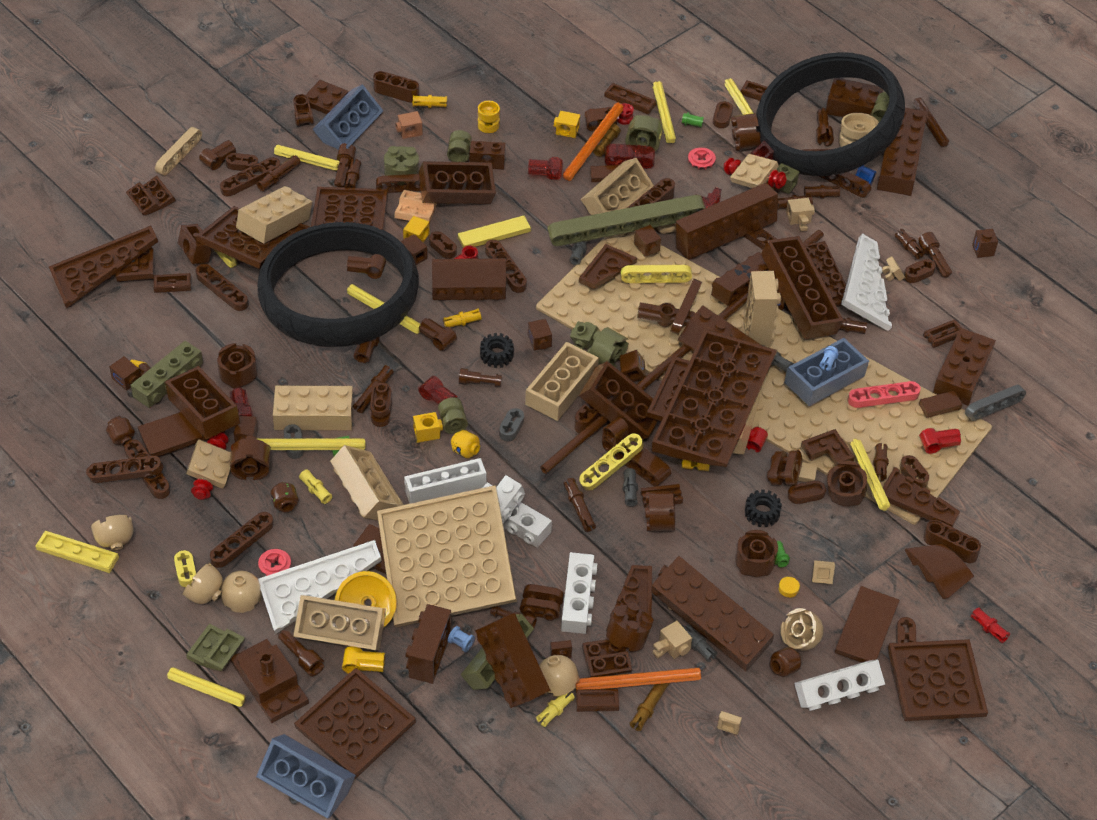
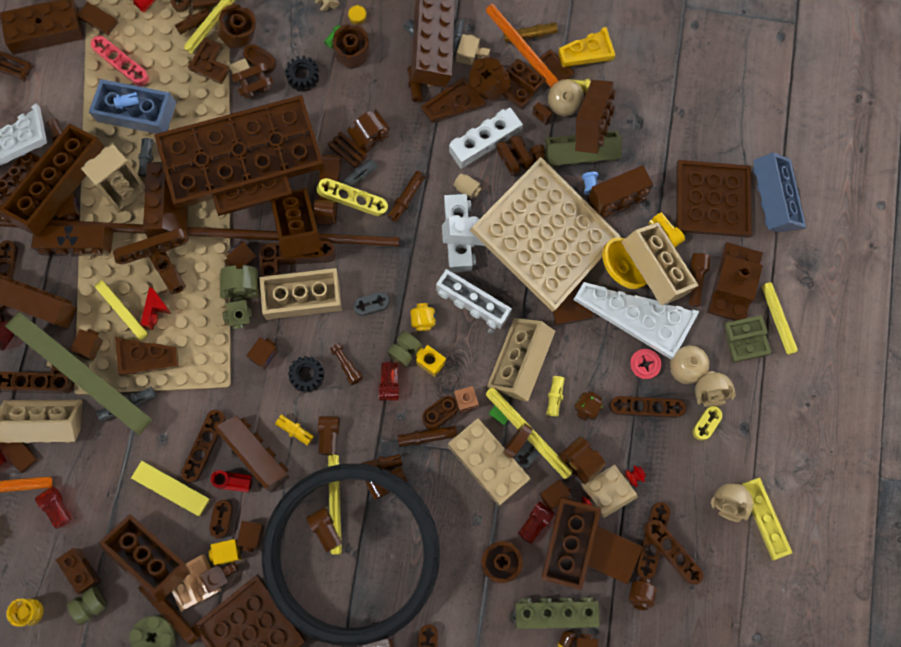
camera: 130 degrees left, 25 degrees up
(307, 422) = (517, 440): none -> reddish brown beam
(373, 426) = (466, 399): none -> nougat brick
(382, 351) = (386, 462): none -> reddish brown pin
(403, 215) = (216, 578): none -> reddish brown plate
(546, 549) = (468, 186): none -> tan brick
(588, 734) = (591, 49): none -> yellow wing
(638, 291) = (152, 306): none -> red slope

